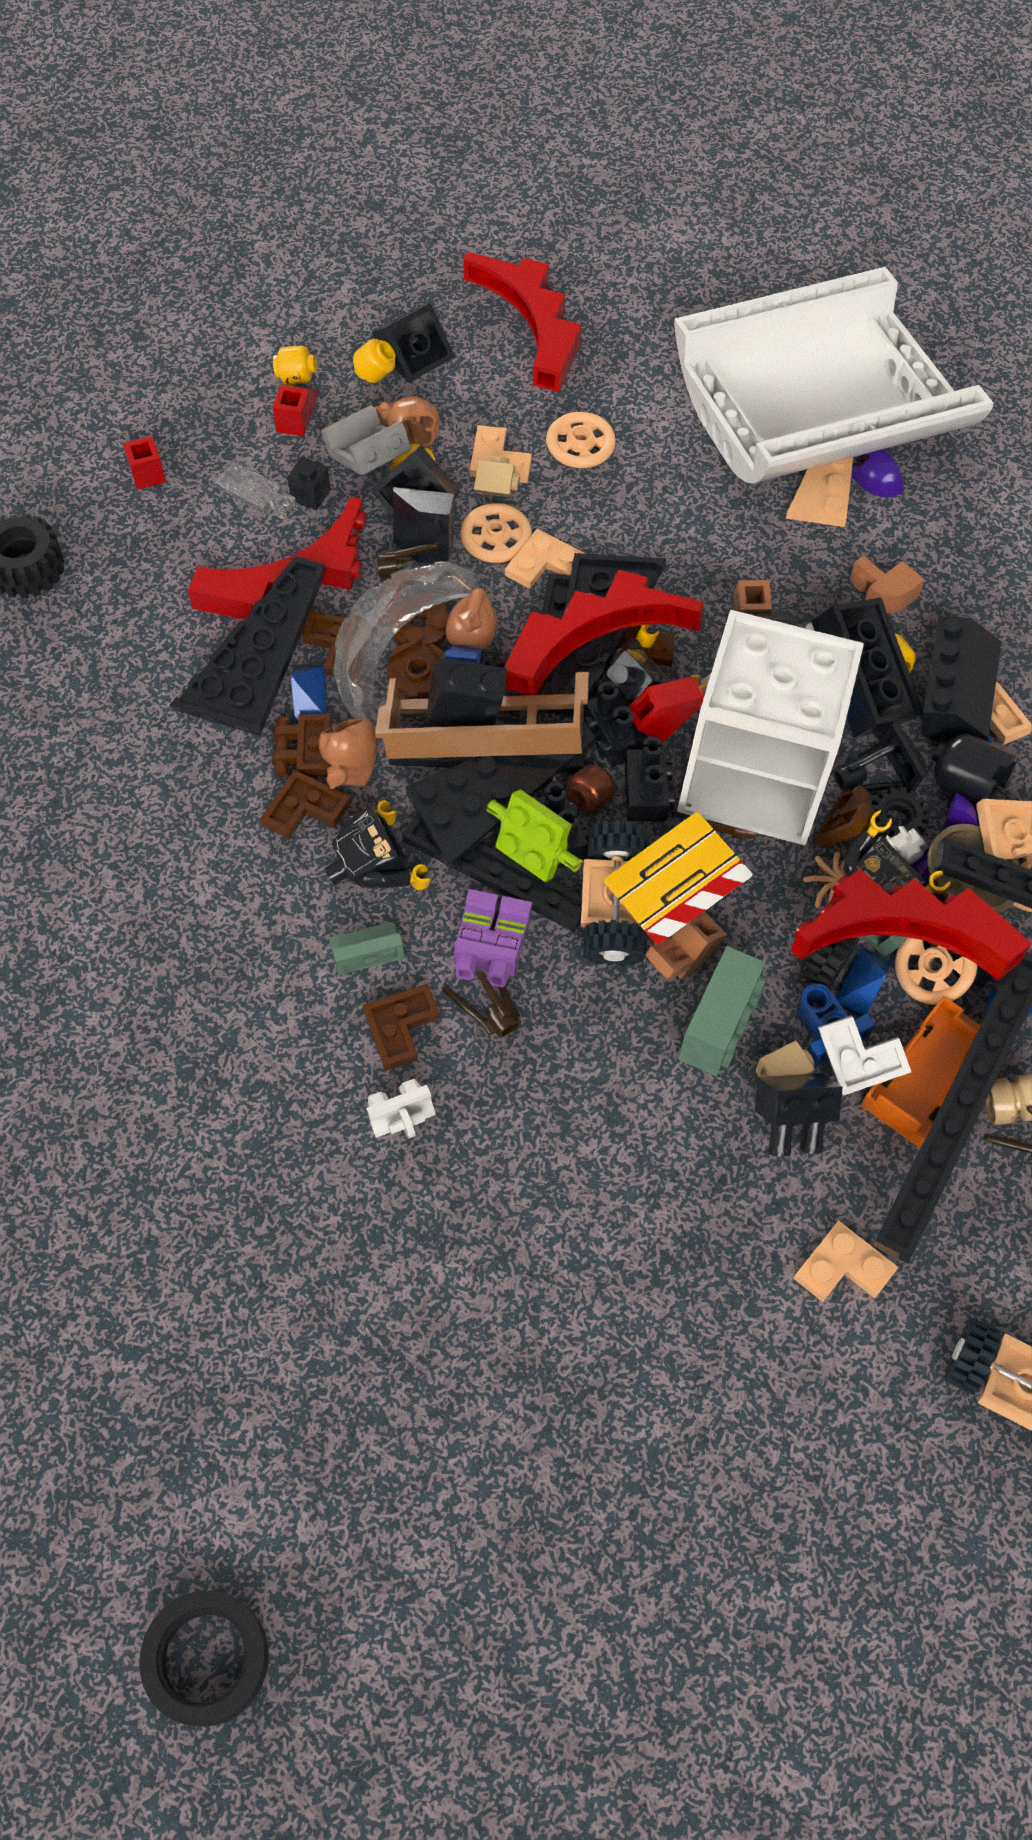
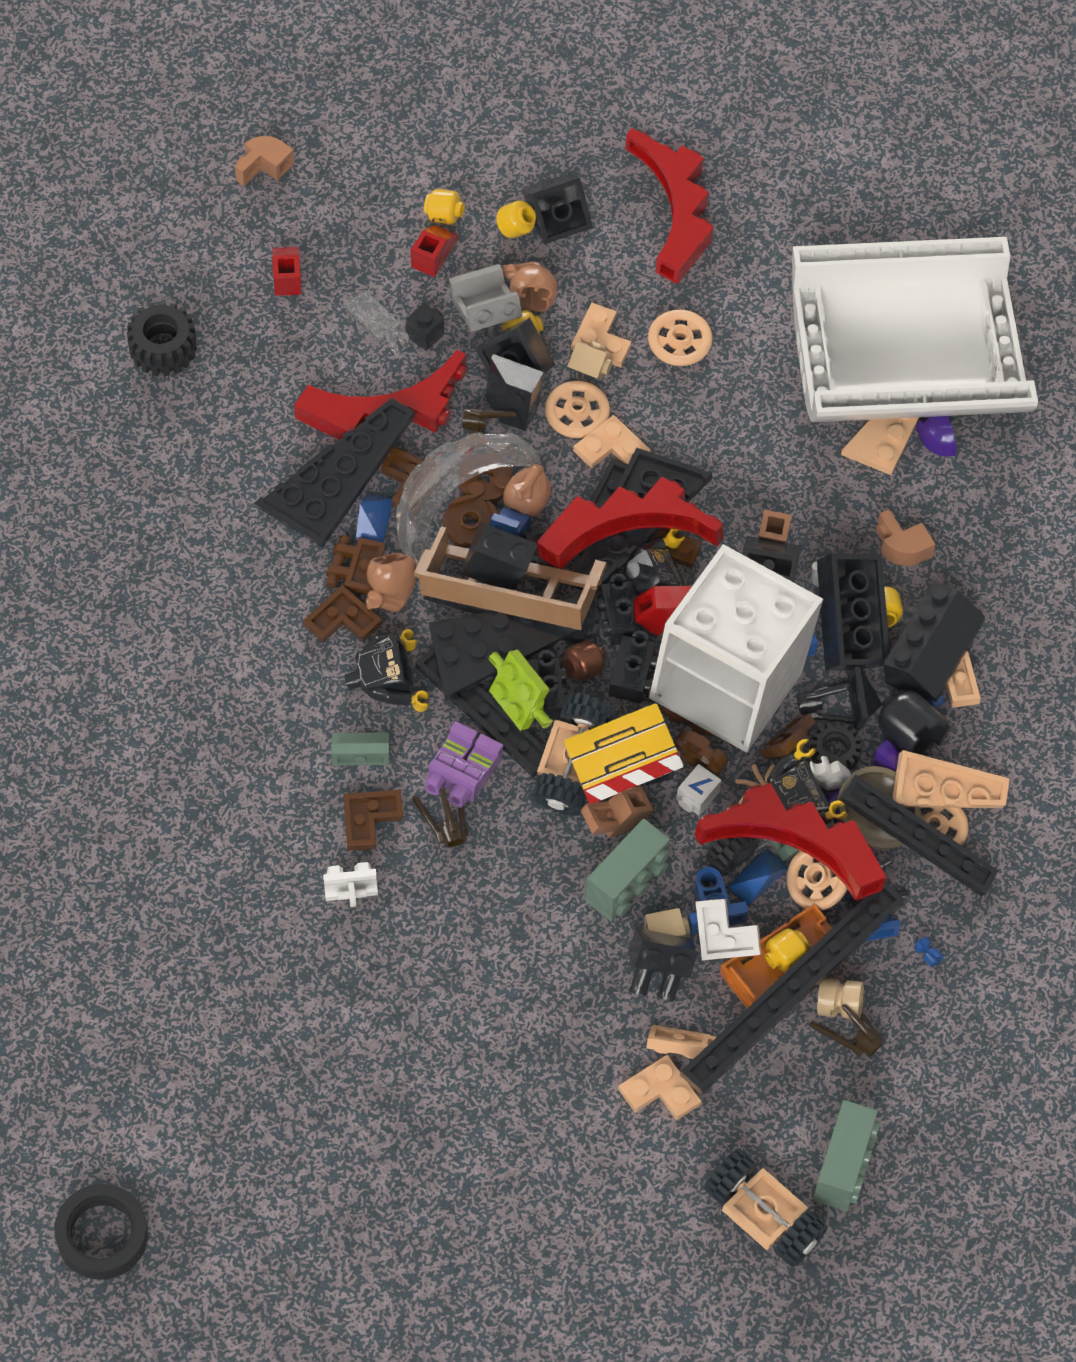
camera: 15 degrees right, 0 degrees up
(90, 354) = (264, 154): none -> nougat brick
(760, 856) = (696, 750): none -> reddish brown plate
(765, 900) = (698, 790): none -> white brick
(852, 1200) = (677, 1041): none -> light nougat hinge
(936, 1058) = (786, 949): none -> yellow head

